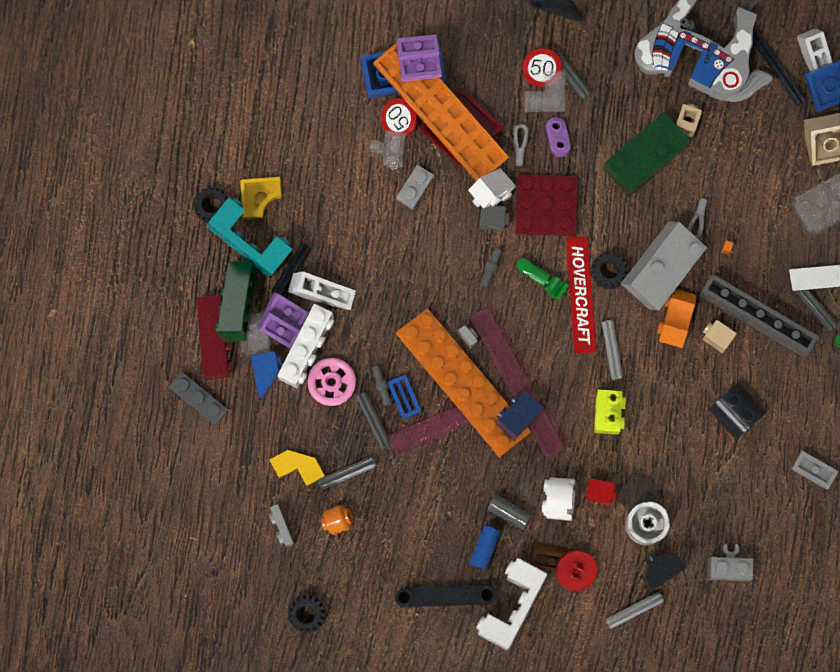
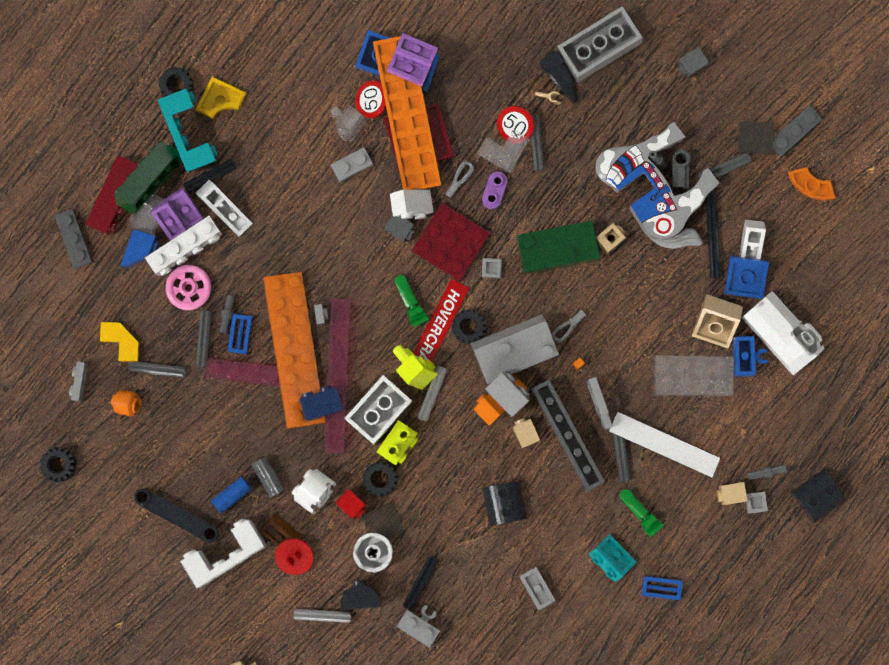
camera: 30 degrees right, 5 degrees up
(490, 268) = (373, 268): dark grey bar -> none
(558, 25) = (551, 96): none -> tan hand
(574, 391) = (378, 410): none -> white brick
(585, 334) = (414, 369): none -> neon yellow brick
(597, 207) = (491, 268): none -> light grey tile
(608, 466) = (380, 491): none -> black tyre
(684, 306) = (508, 393): none -> light grey brick
(705, 527) = (420, 582): none -> black axle
(714, 26) = (680, 172): none -> dark grey piece
(768, 269) = (599, 402): none -> light grey piece

